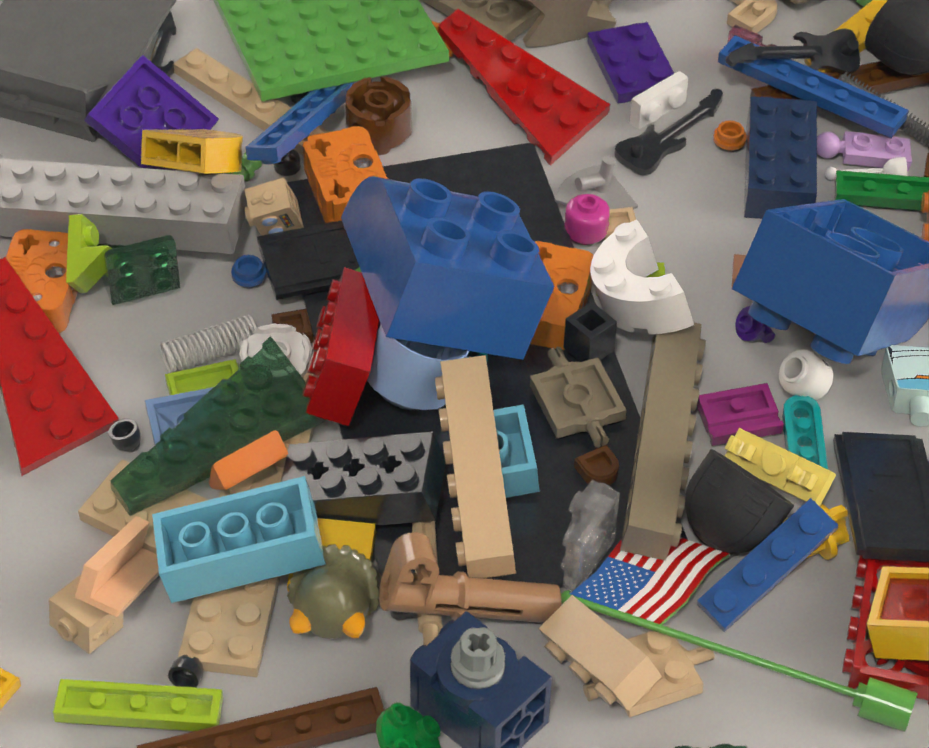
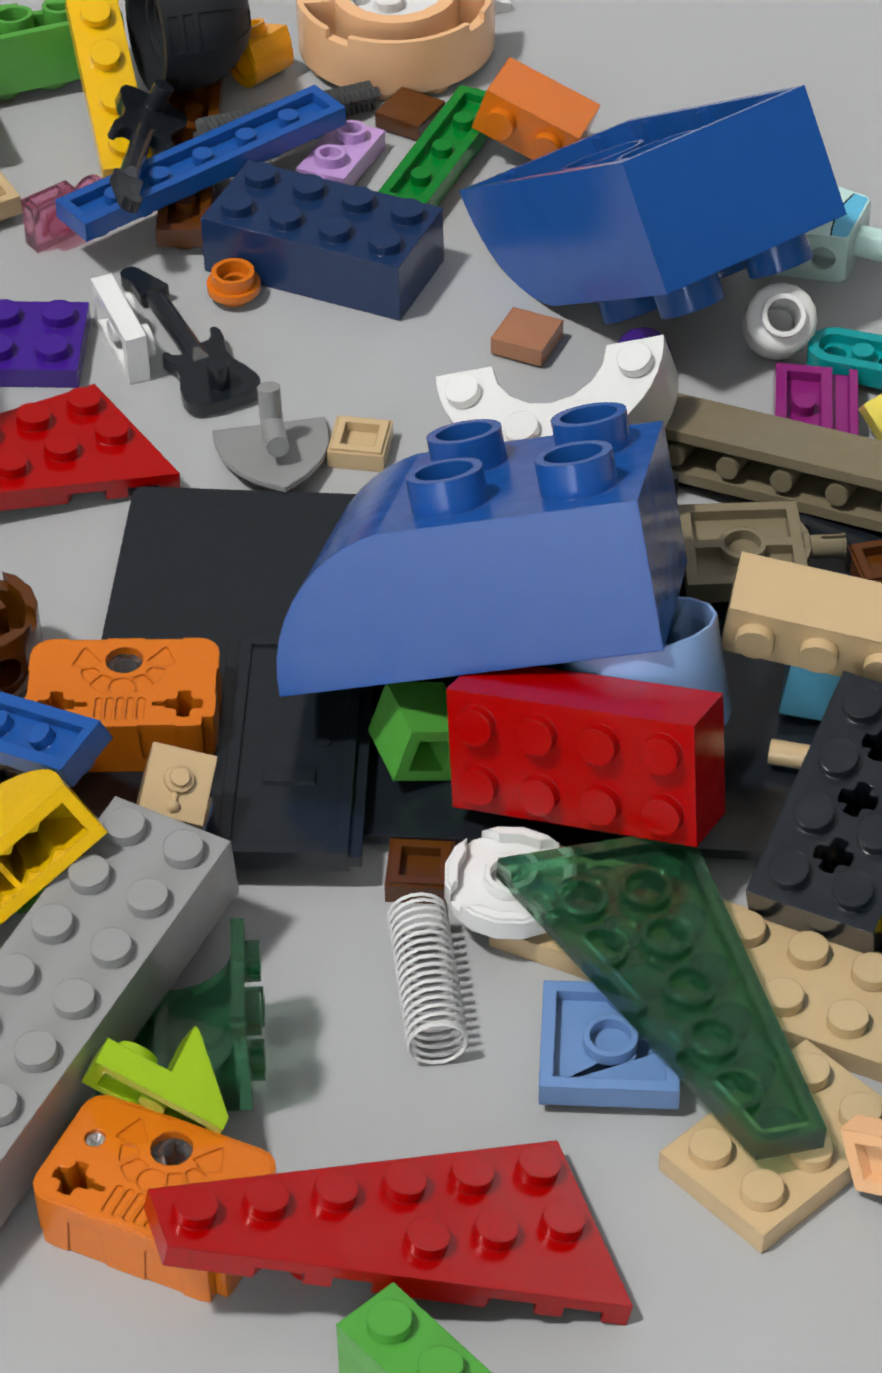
camera: 70 degrees left, 5 degrees down
(125, 434) = (611, 1125): black hinge -> none
(200, 377) = (505, 1013): lime tile -> none
(247, 461) = (776, 951): orange slope -> none
(248, 271) = (264, 896): blue plate -> none
(587, 219) = (352, 454): dark pink head -> none
(894, 166) = (391, 148): white hinge -> none

